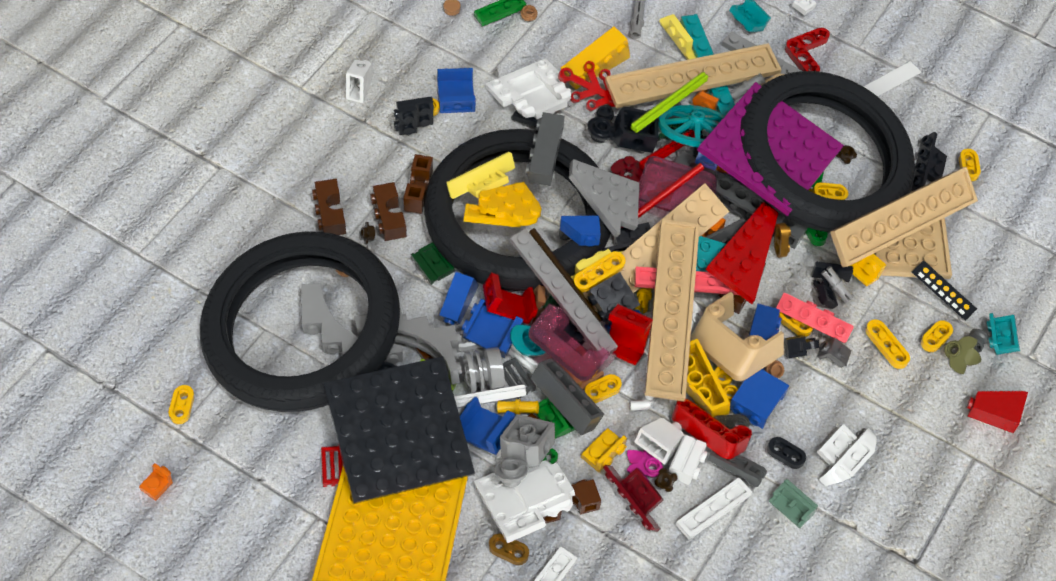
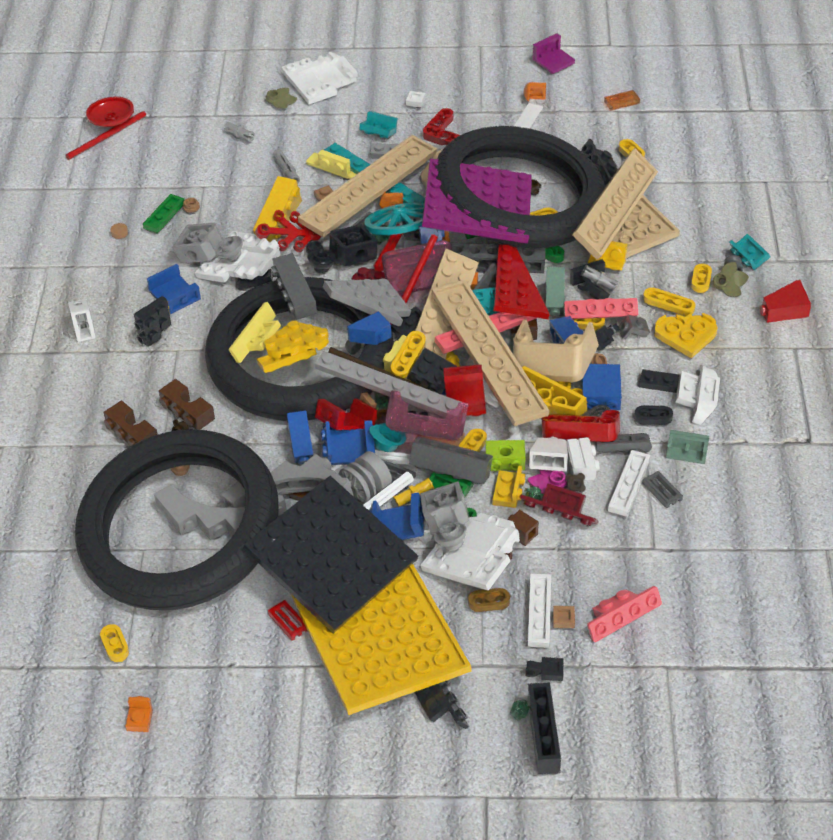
camera: 25 degrees left, 10 degrees down
(420, 176) = (197, 373): reddish brown arch -> none
(432, 263) = (255, 425): dark green plate -> none
(510, 59) = (205, 242): none -> light grey brick
(619, 407) = (506, 454): none -> lime brick
(620, 469) = (533, 492): none -> clear green plate
(652, 60) = (322, 192): none -> medium nougat plate
(669, 102) = (366, 210): lime axle -> none
(741, 547) = (659, 490): none -> dark grey tile
(743, 88) = (418, 174): light grey pin -> none
(781, 239) = (532, 264): pearl gold plate -> none
(785, 275) = (555, 290): none -> sand green slope
(818, 420) = (659, 381): none -> black plate
(880, 386) = (686, 333): none -> yellow plate
(922, 52) = (535, 91): none -> orange plate
(944, 290) = (681, 244): black sticker -> none
(966, 21) = (550, 55): none -> magenta bracket
(1001, 104) = (622, 100): none -> clear orange plate

